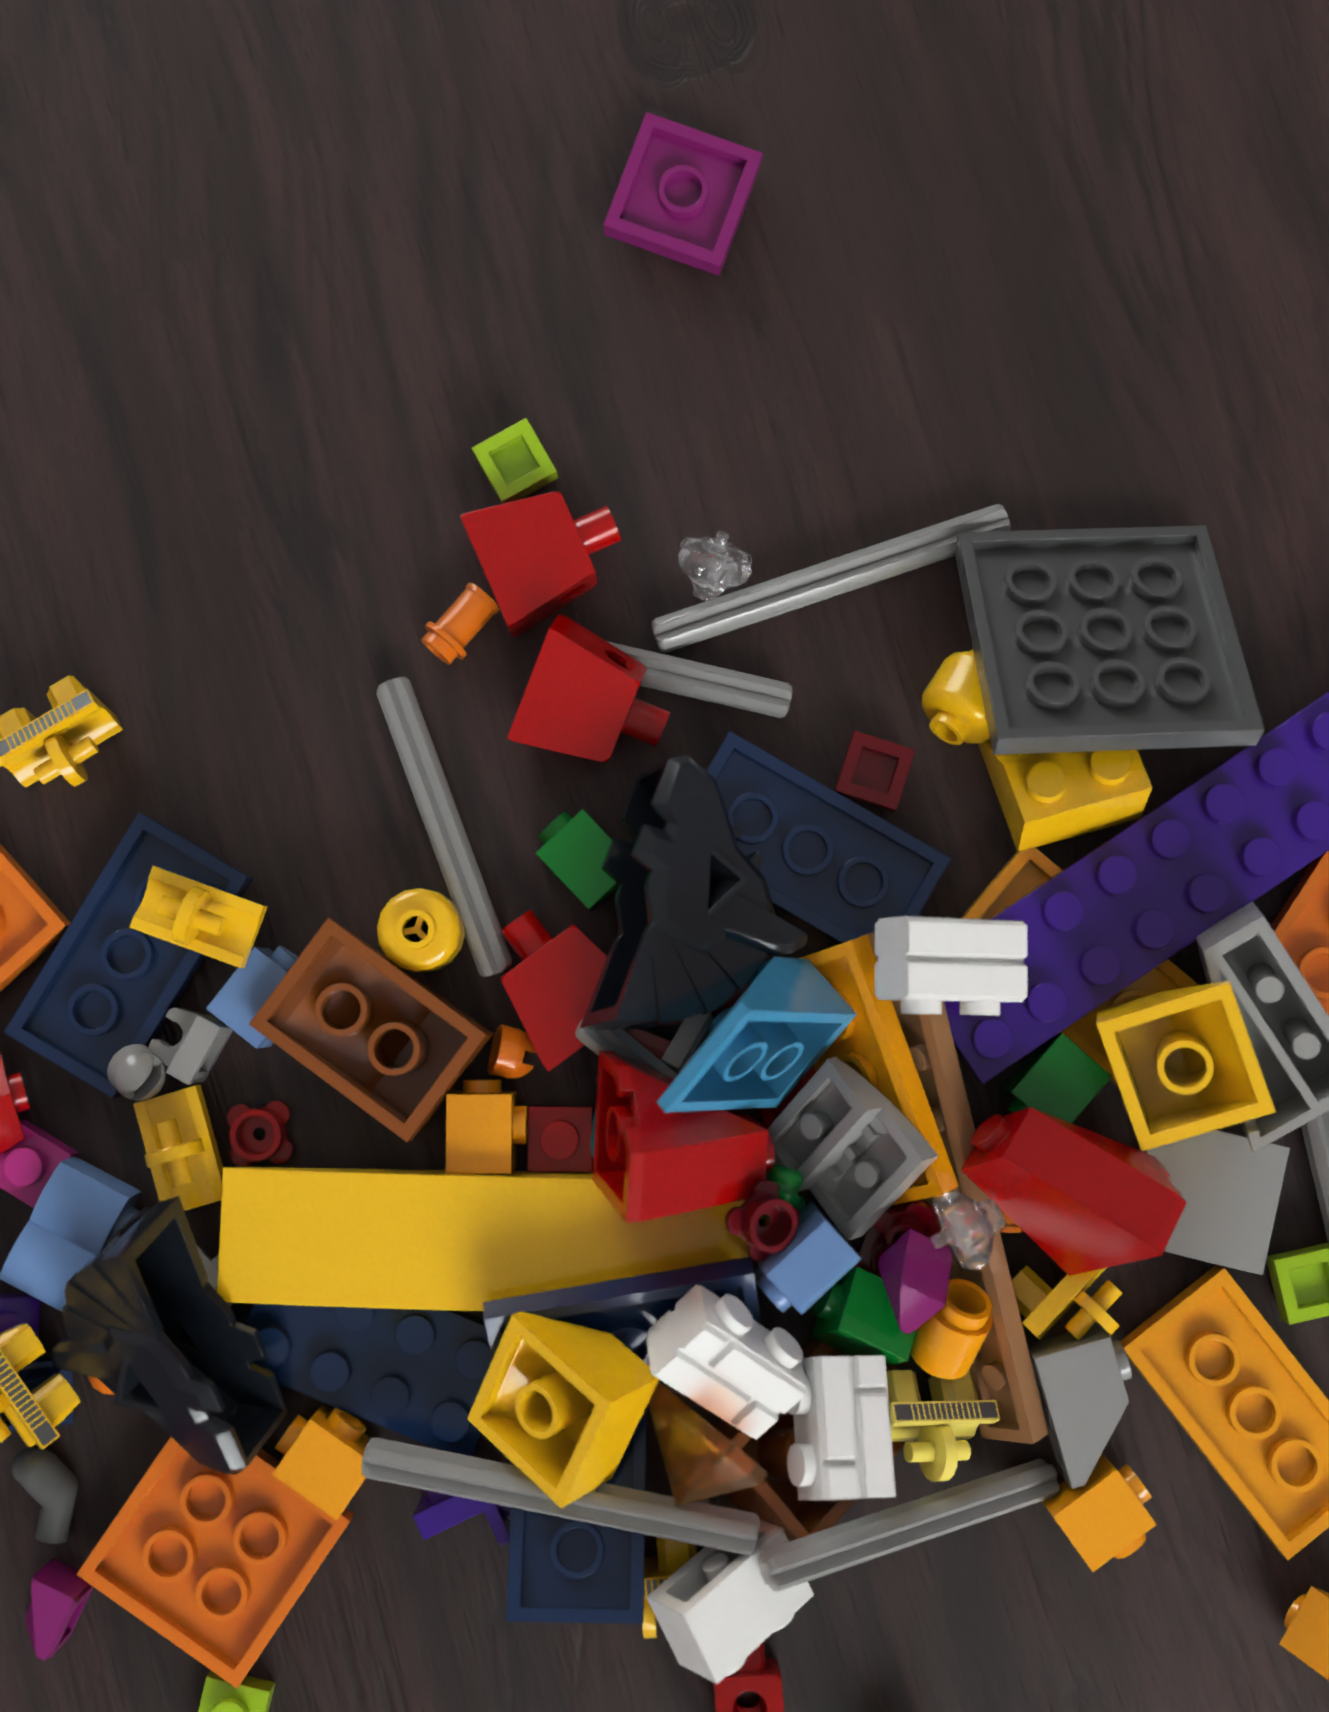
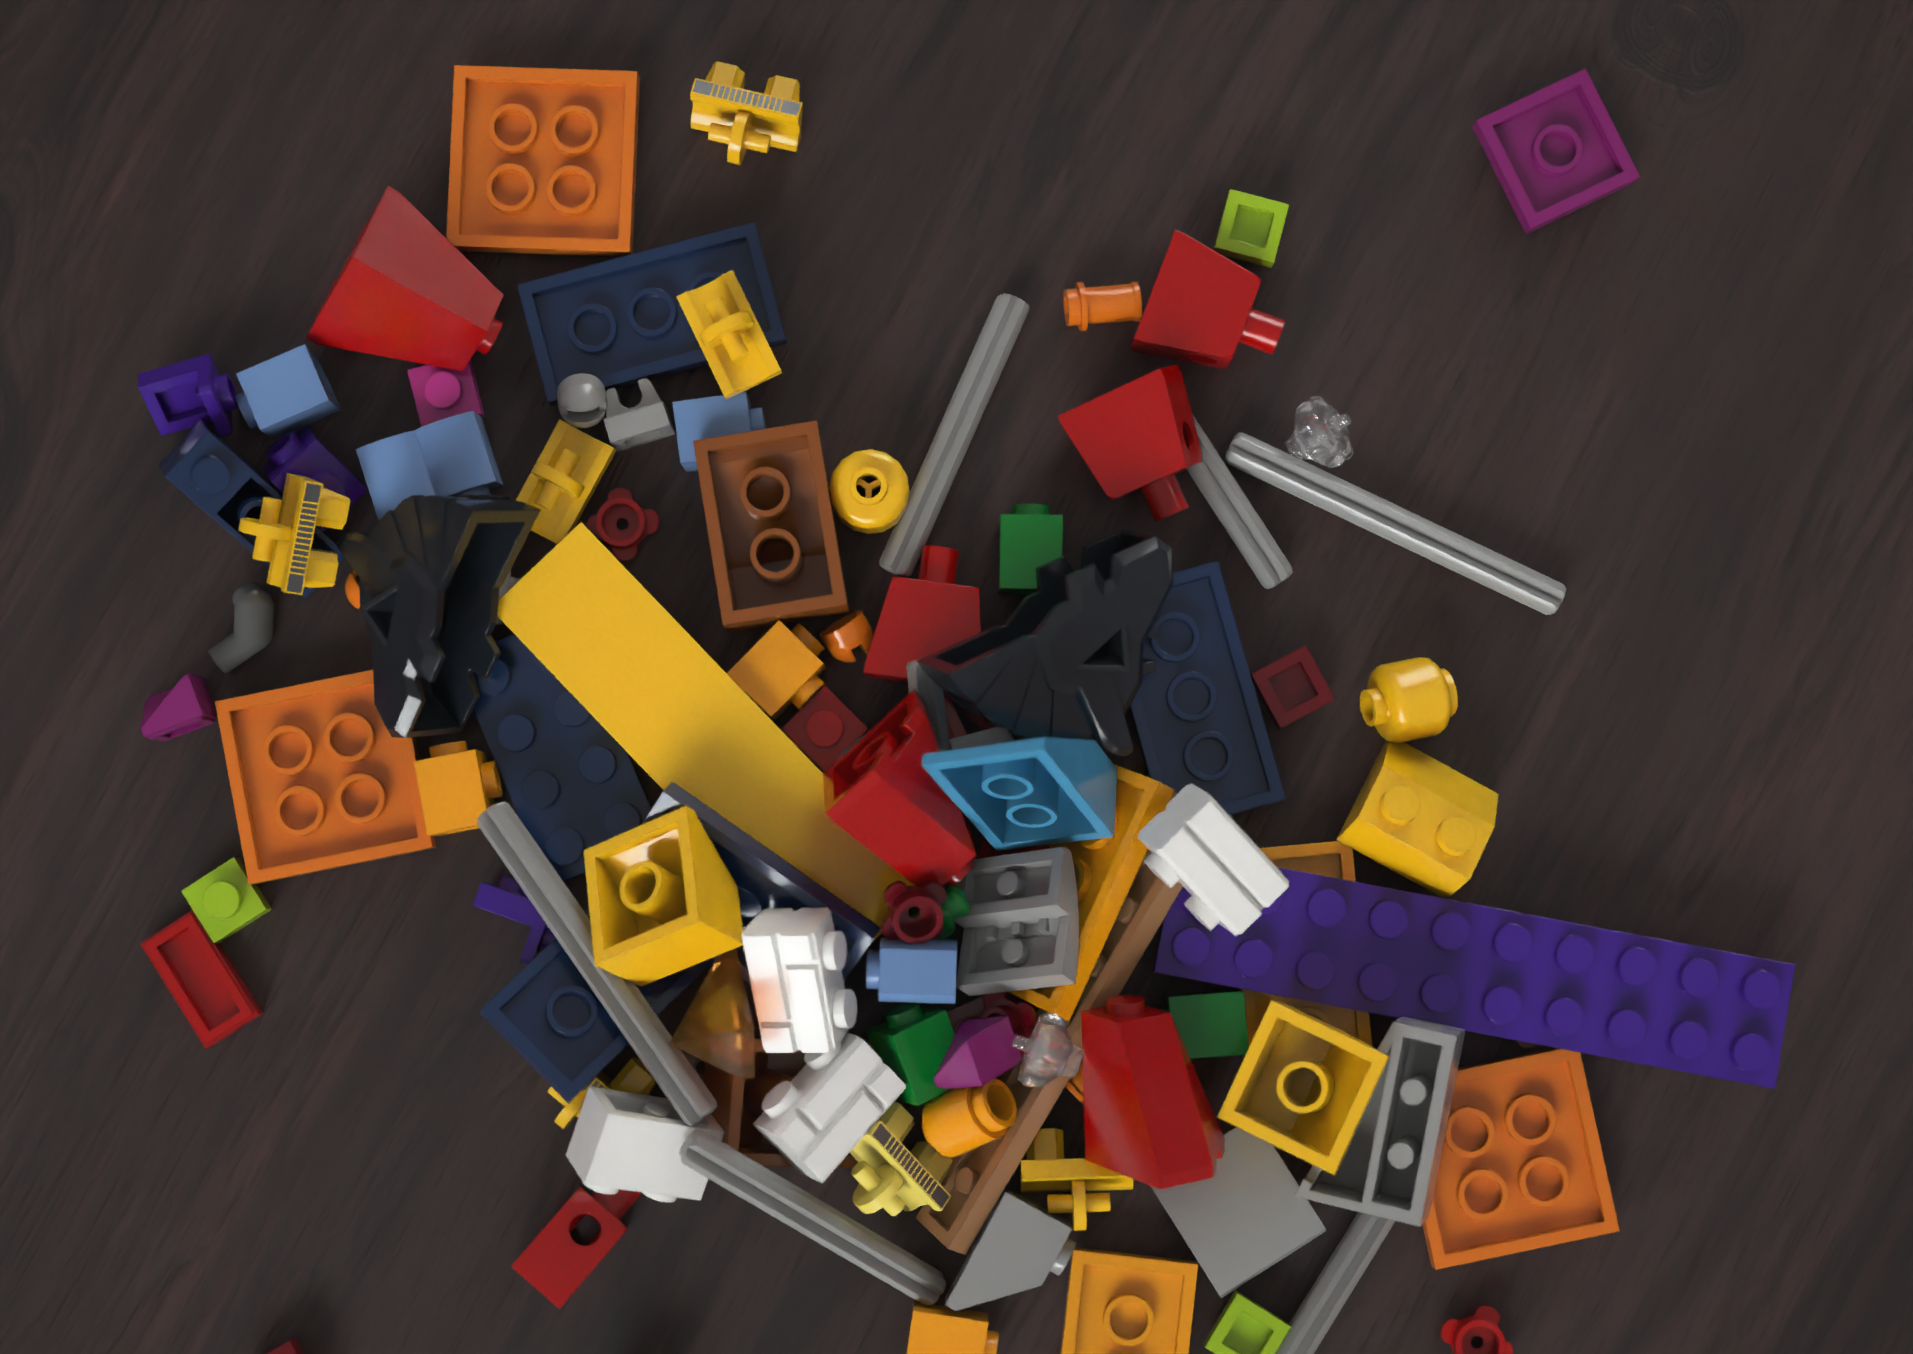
camera: 40 degrees right, 0 degrees up
(1104, 640) = (1540, 748): dark grey plate -> none

